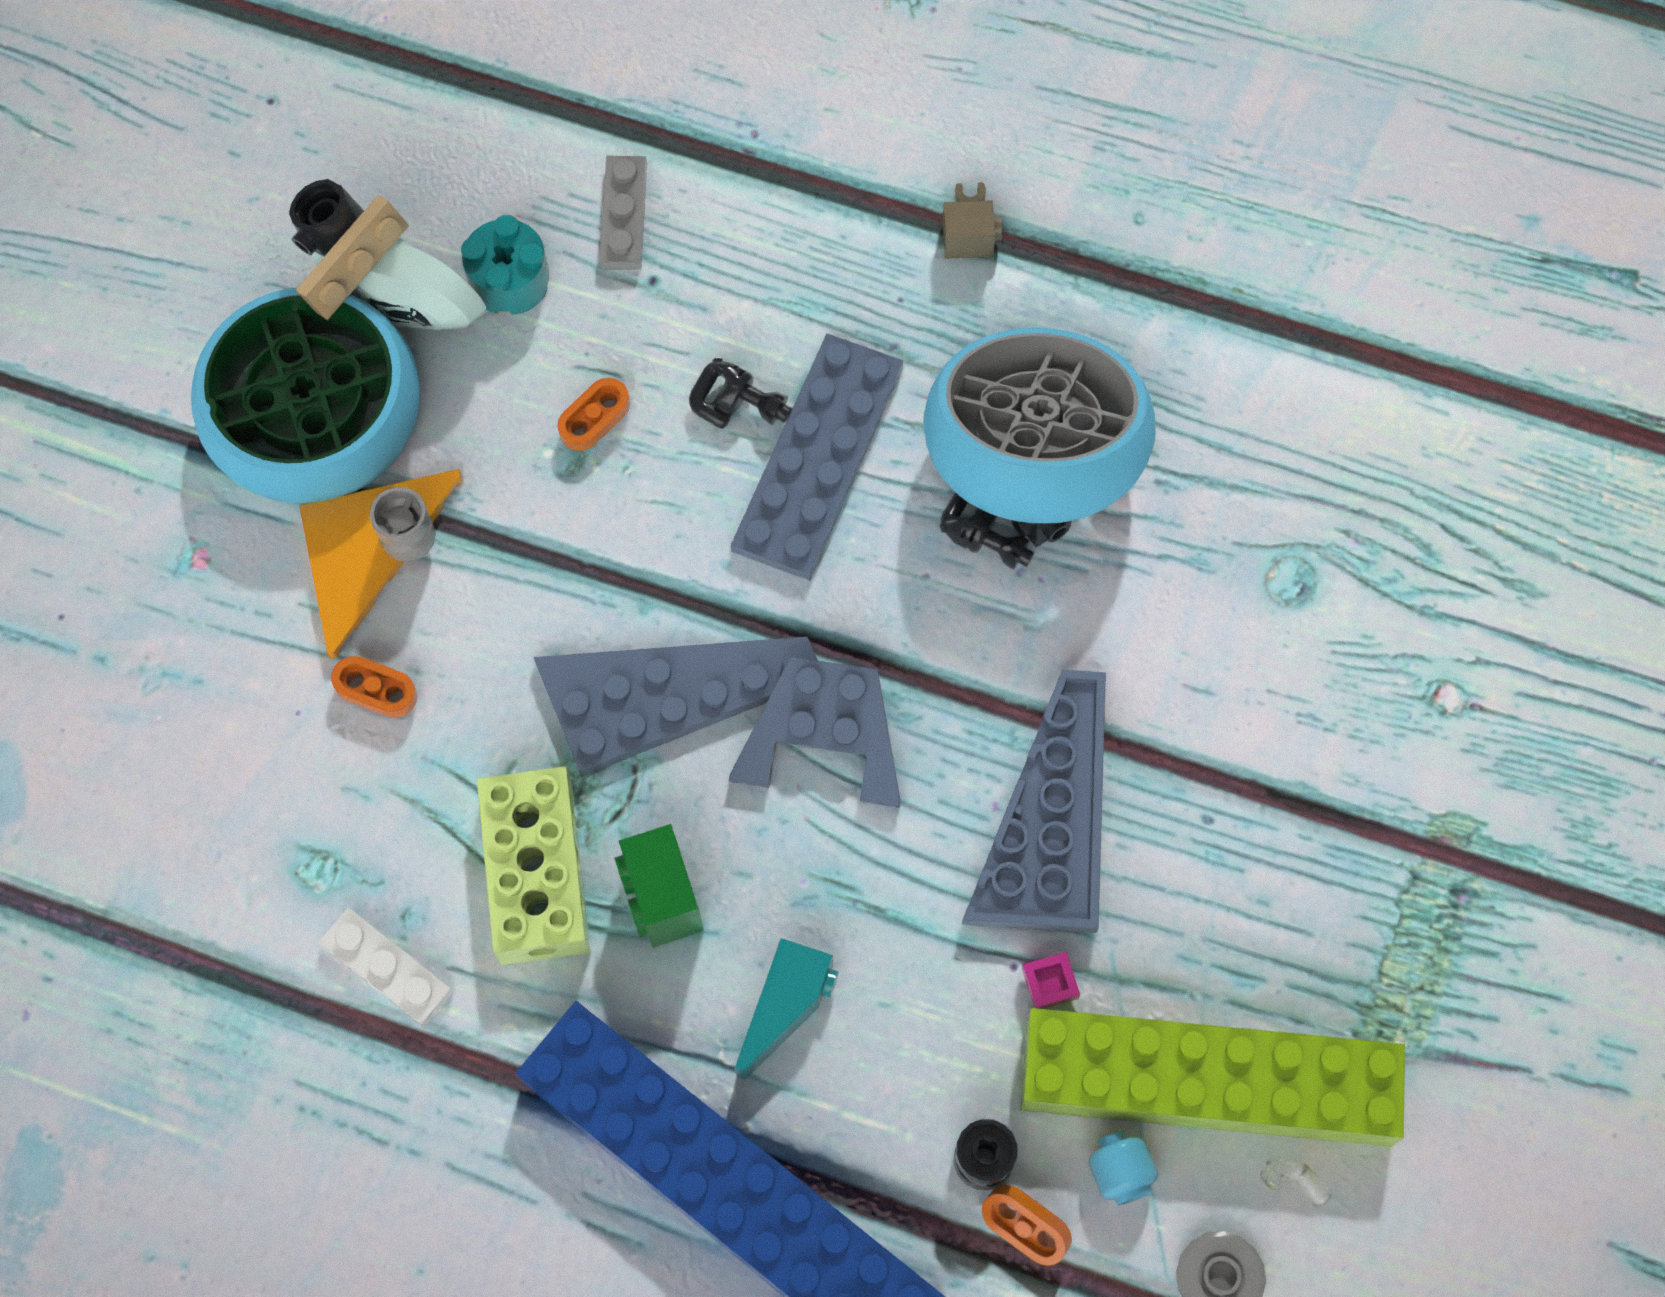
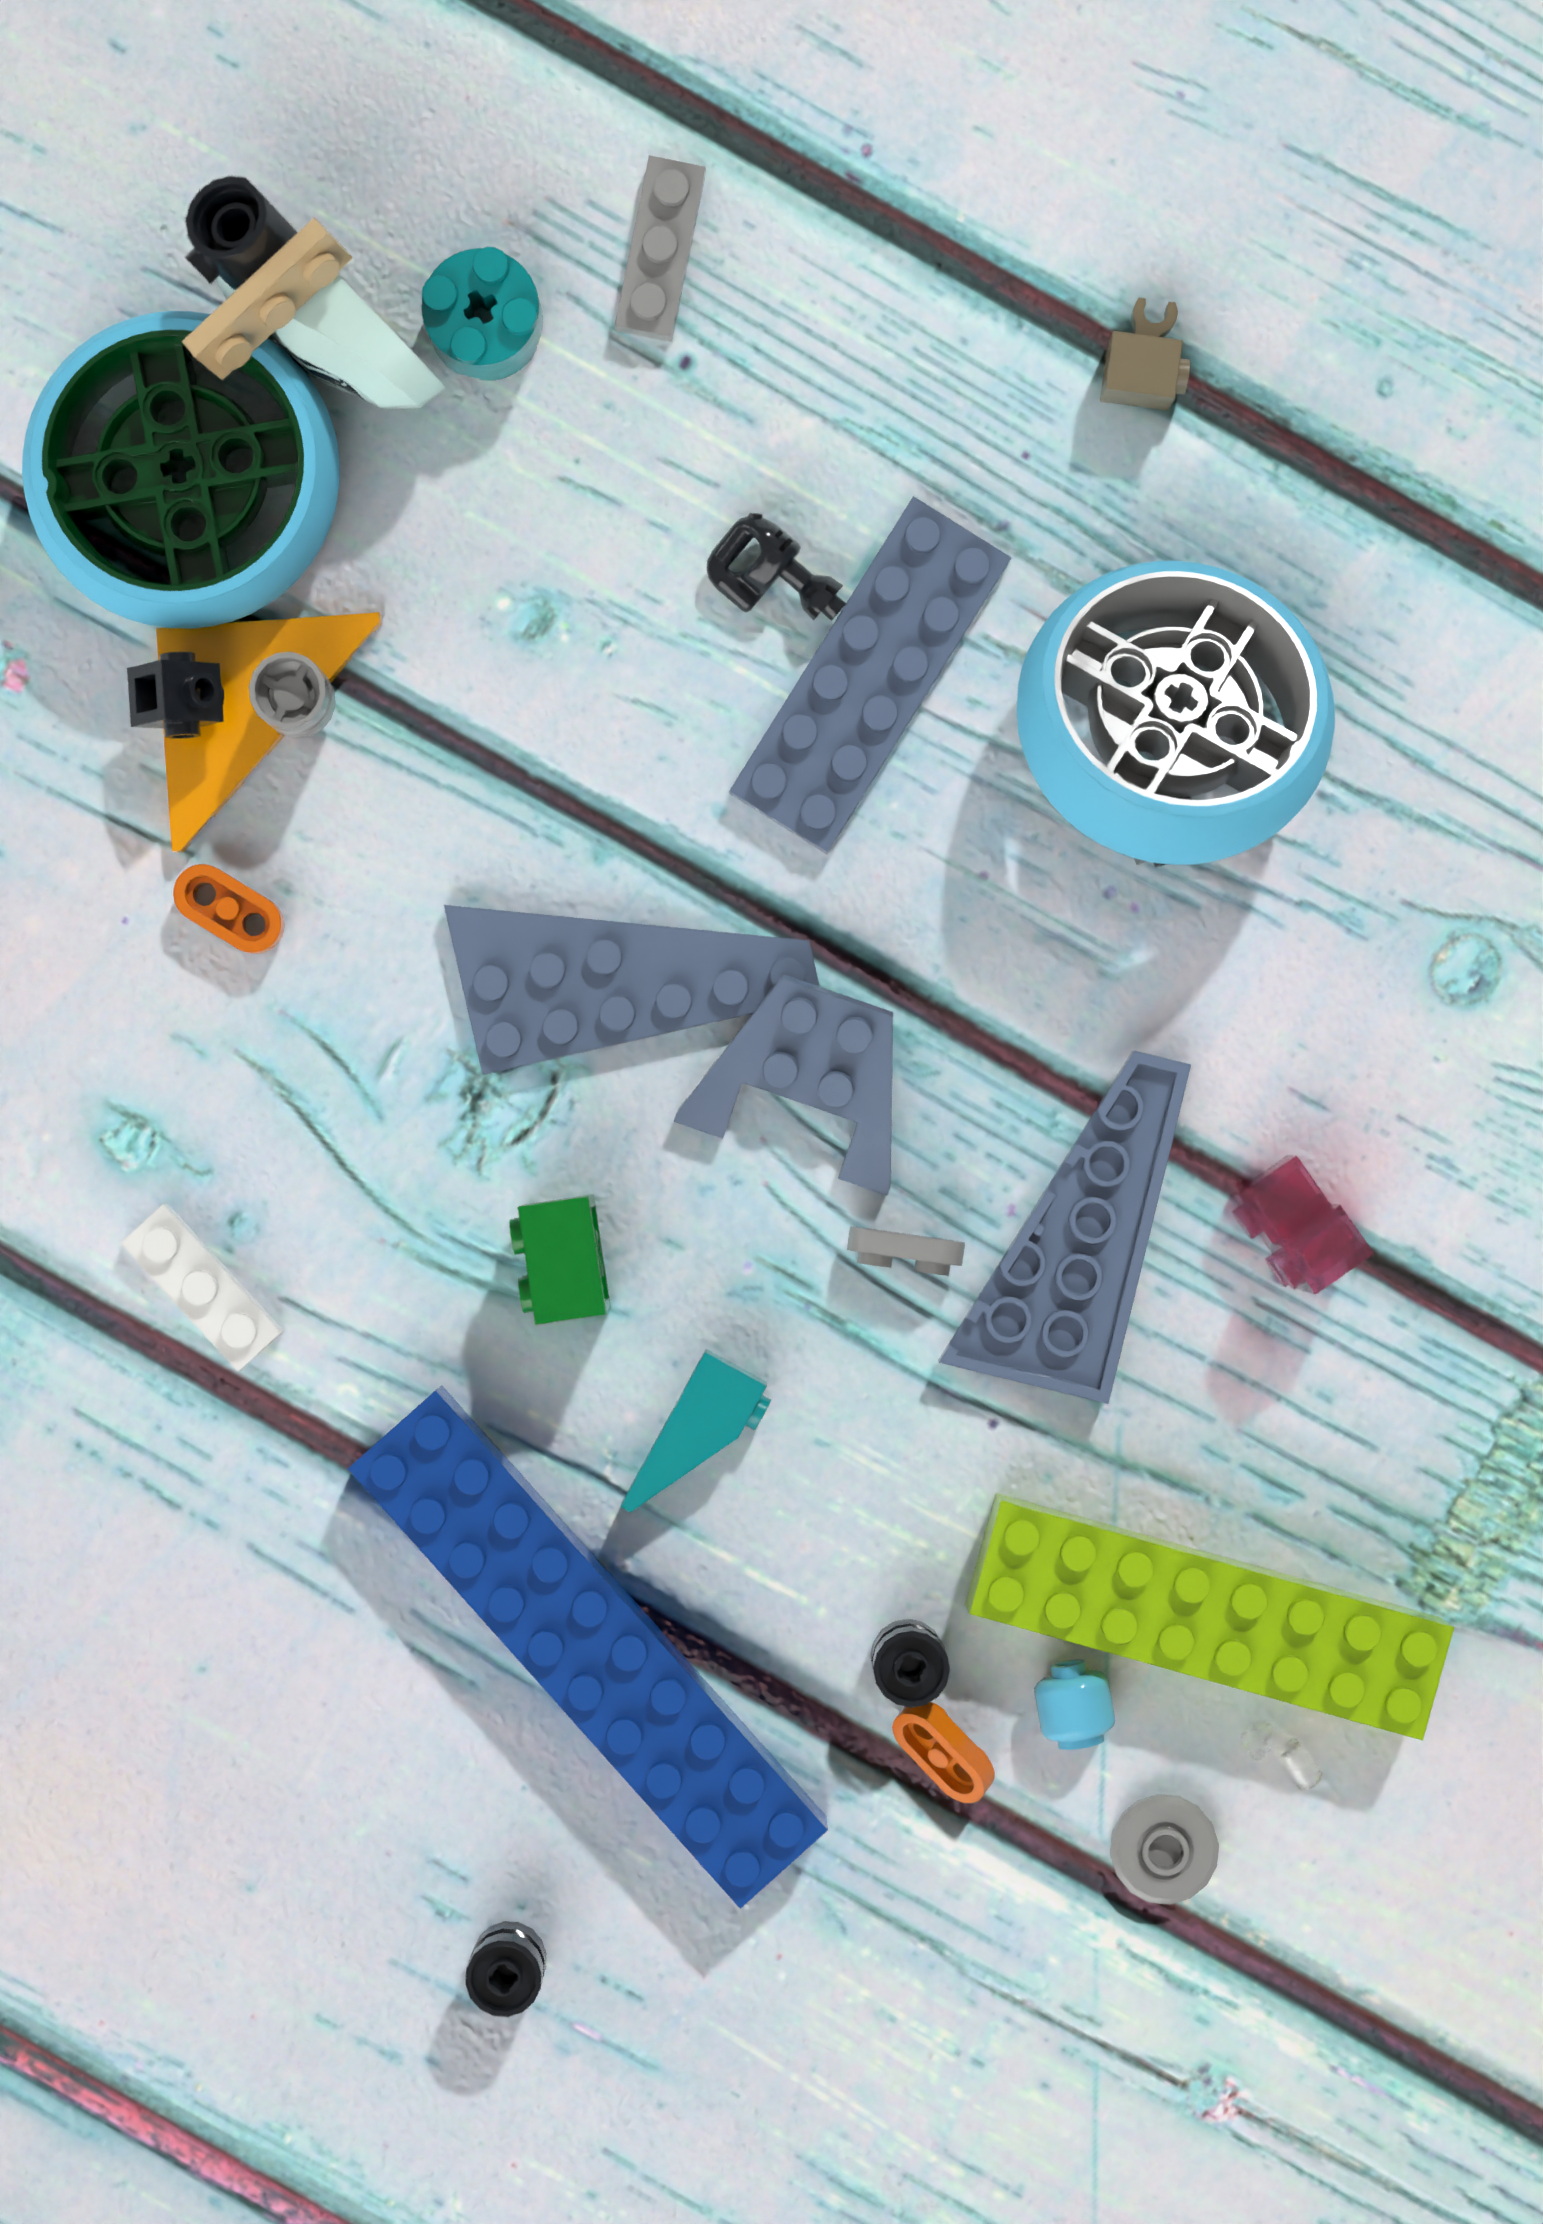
camera: 10 degrees right, 20 degrees up
(317, 537) = (176, 695): none -> black brick
(508, 849) = (369, 1213): yellowish green brick -> none
(590, 413) = (571, 561): orange plate -> none
(903, 841) = (880, 1247): none -> light grey plate
(976, 531) = (1057, 836): black piece -> none
(1051, 981) = (1034, 1457): dark pink plate -> none
(1212, 772) = (1304, 1232): none -> clear pink brick

